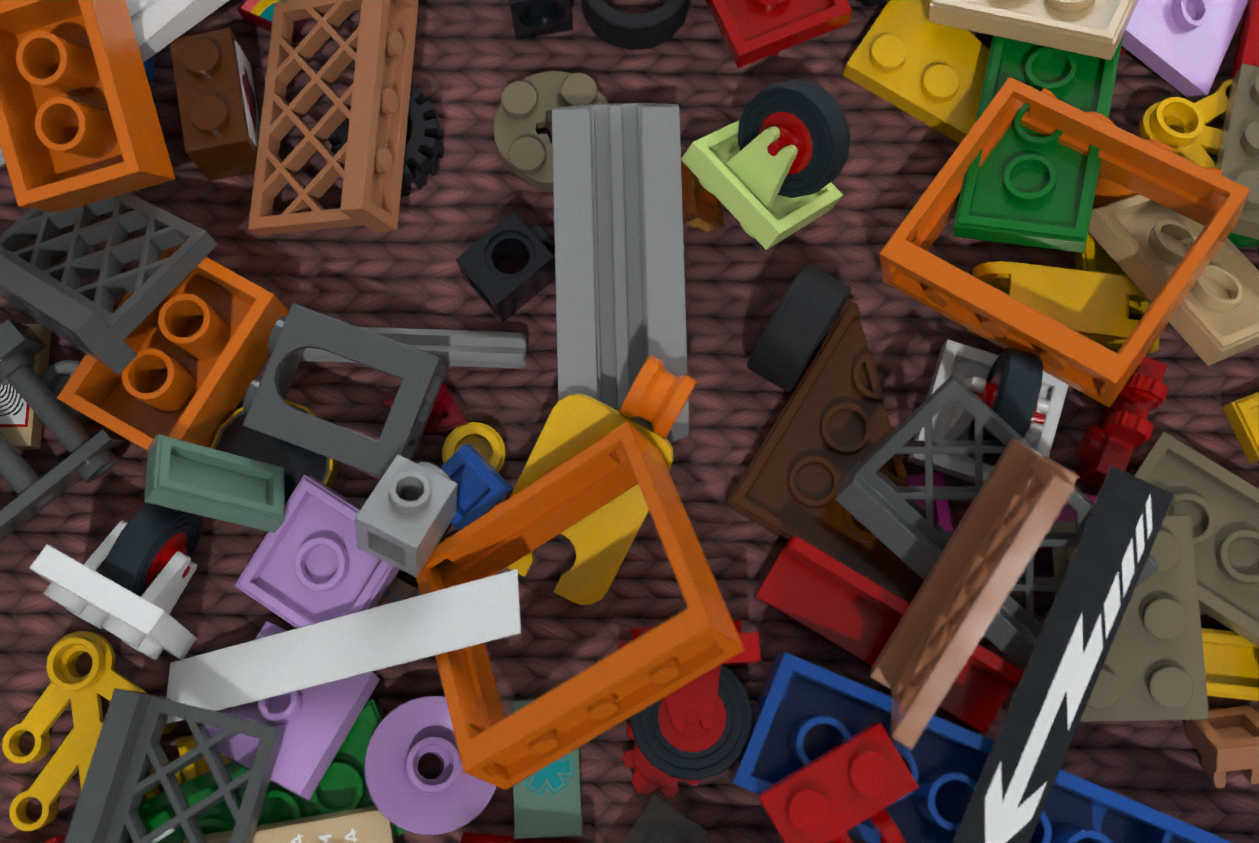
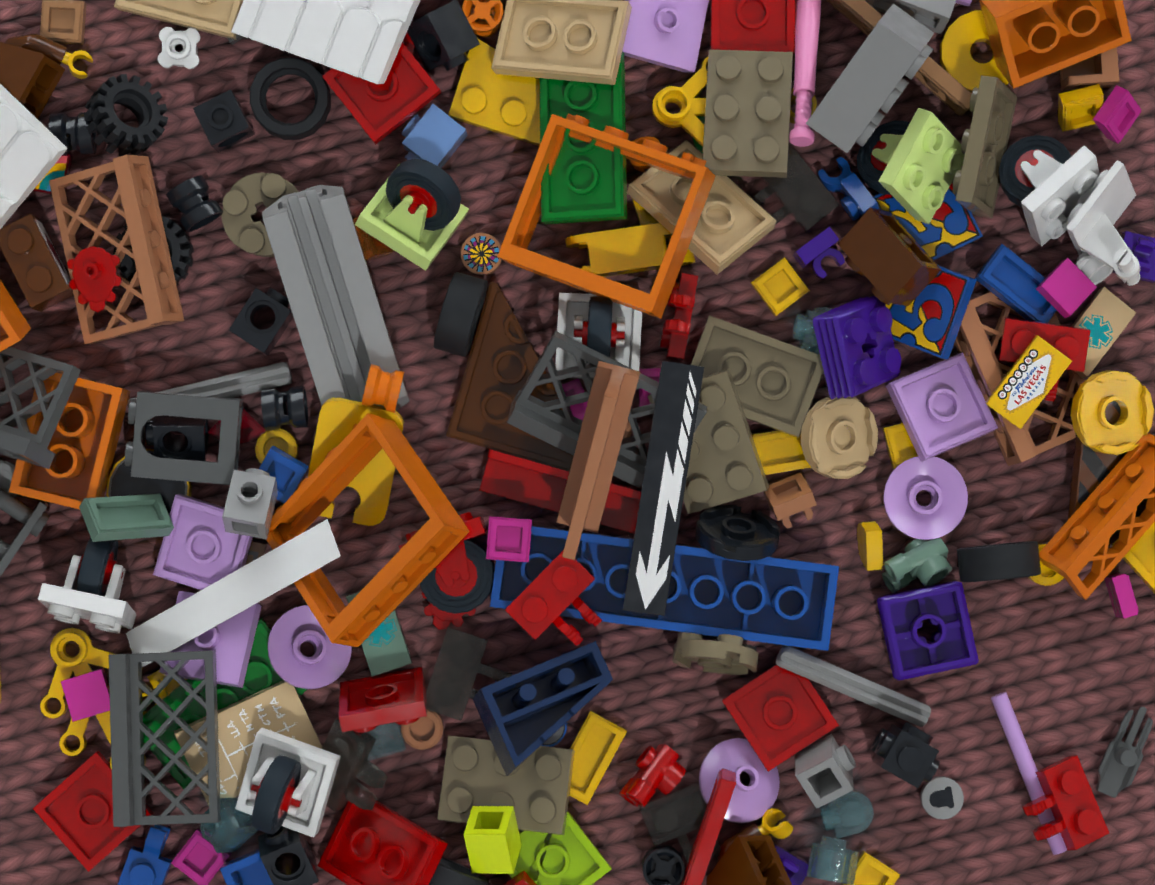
camera: 20 degrees left, 10 degrees up
(67, 740) = (87, 694): none -> dark pink tile
(290, 134) = (94, 276): none -> red piece
(363, 385) = (189, 446): none -> black brick
(461, 77) = (193, 201): none -> black wheel
(503, 396) = (275, 409): none -> black wheel
(793, 682) = (509, 539): none -> dark pink tile
(830, 67) = (433, 137): none -> medium blue brick
(846, 257) = (480, 254): none -> tile
(1152, 781) = (737, 534): none -> black tile

